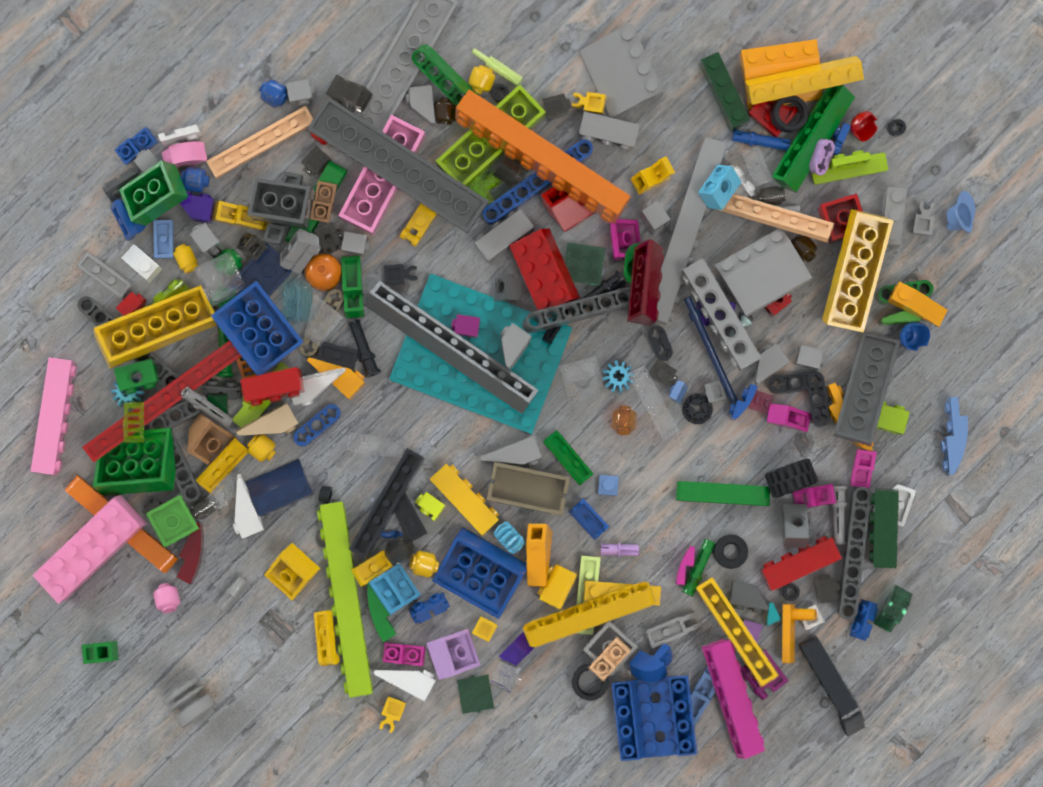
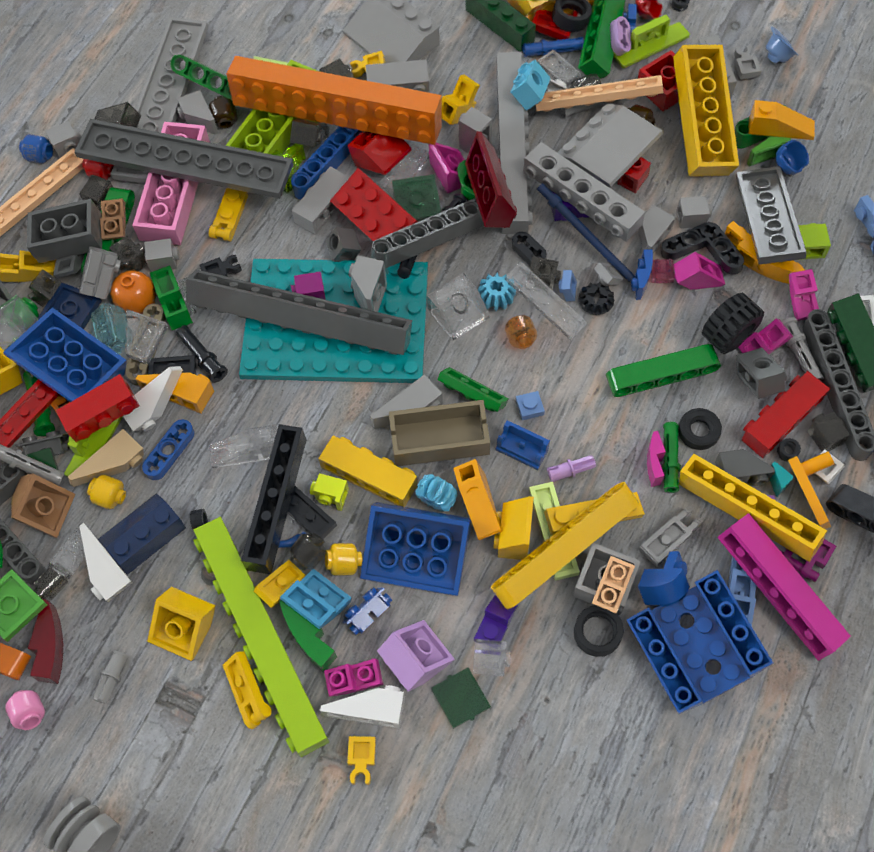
camera: 15 degrees left, 20 degrees down
(222, 465) = (63, 525): yellow plate -> none
(484, 629) = (444, 611): yellow plate -> none

